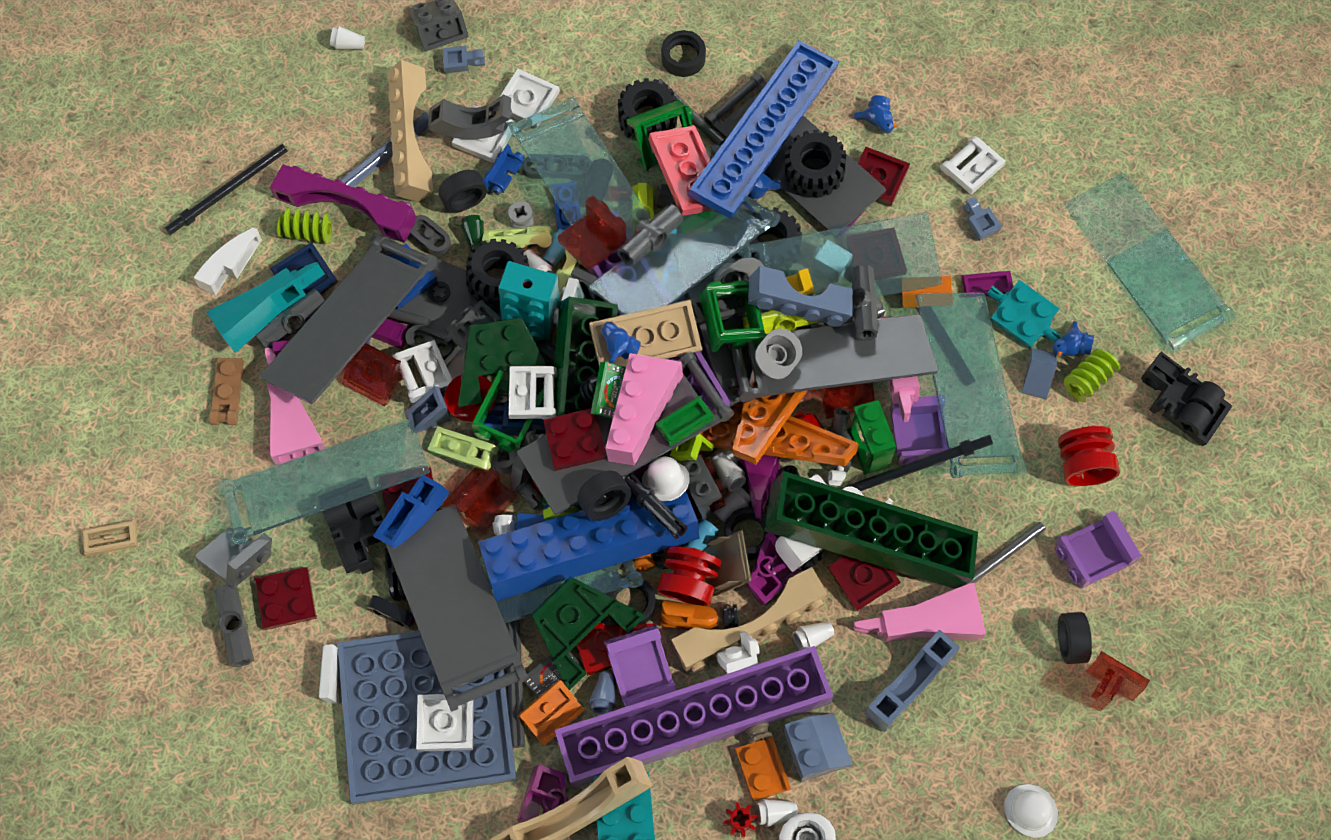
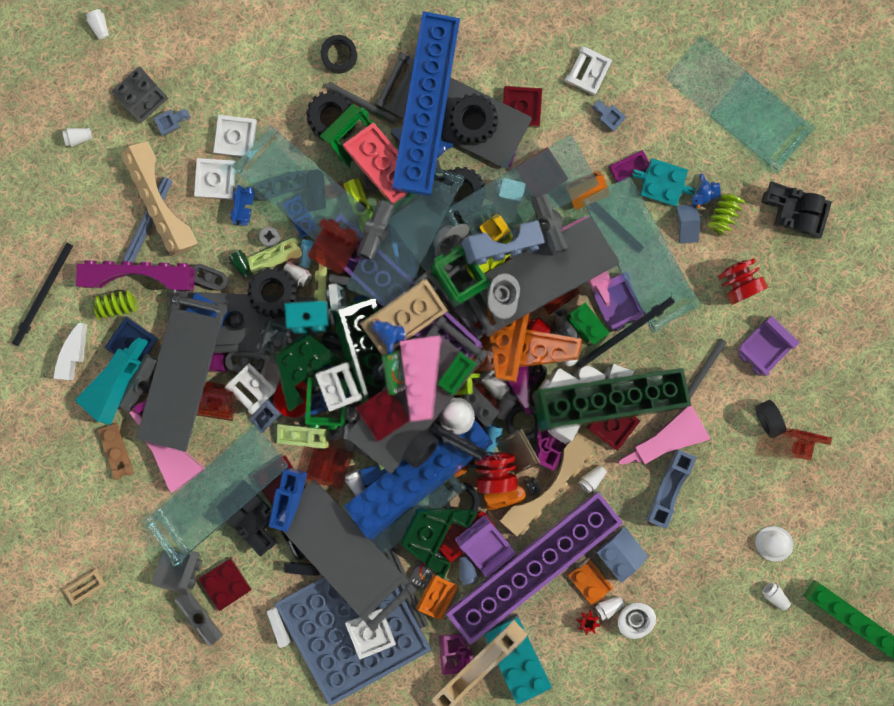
camera: 15 degrees left, 20 degrees up
(462, 191) = (219, 235): black tyre -> none
(468, 122) = (202, 177): dark grey arch -> none
(740, 657) = (550, 516): white bracket -> none
(878, 114) = (505, 53): blue animal -> none

